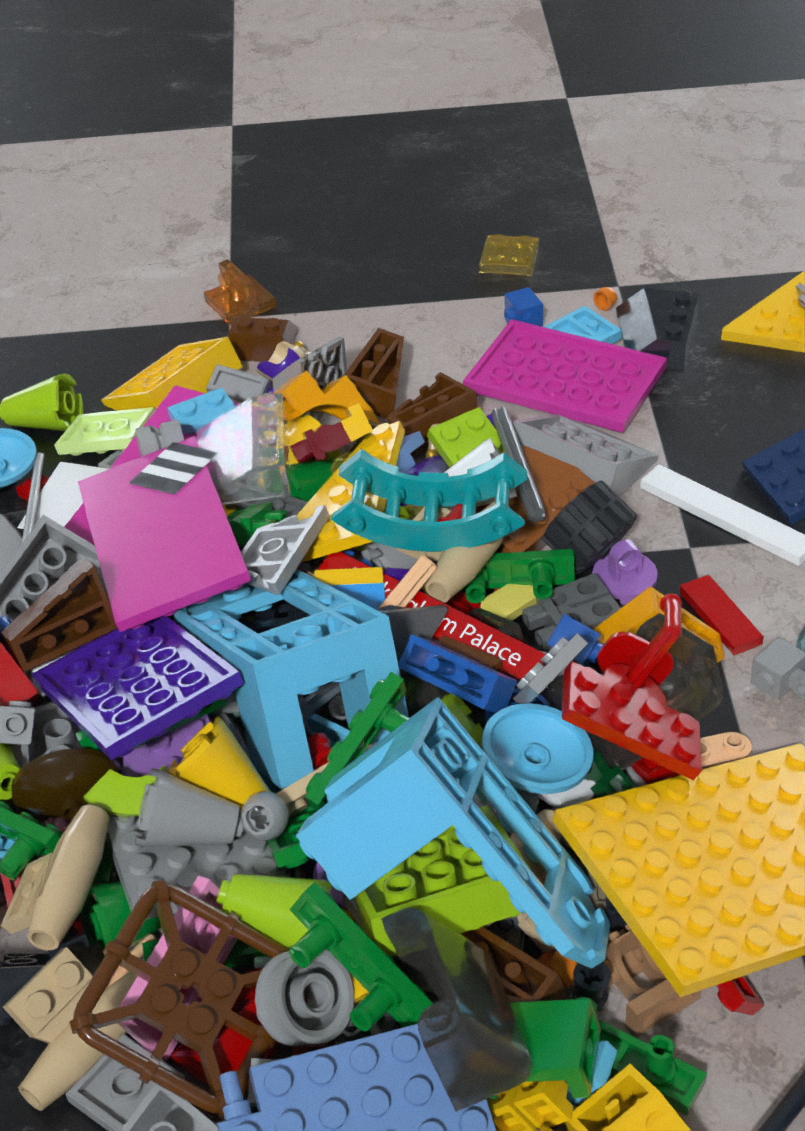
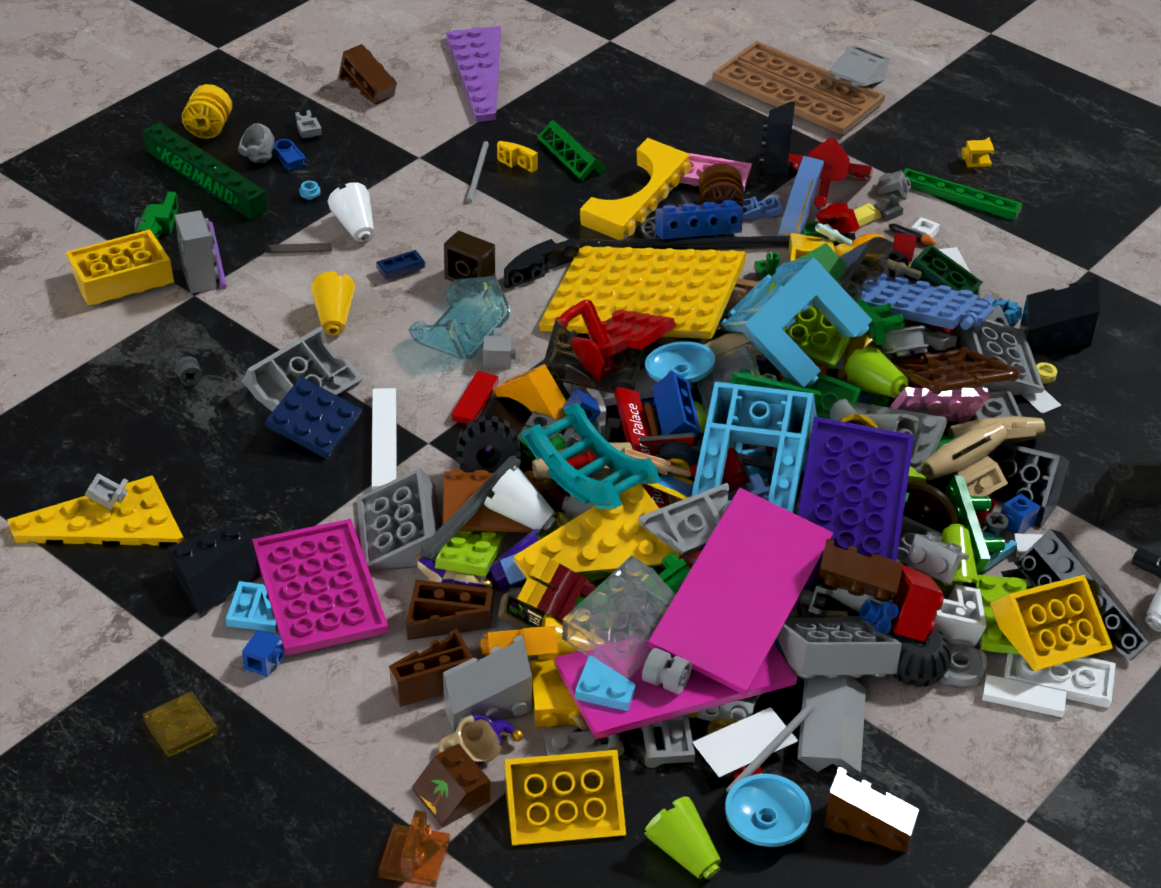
camera: 140 degrees left, 0 degrees up
(102, 431) = (662, 771): yellowish green plate -> none
(173, 468) = (689, 624): black sticker -> none
(237, 384) = (532, 736): light grey tile -> none
(555, 661) = (638, 366): light grey plate -> none
(605, 298) = (195, 621): orange hinge -> none

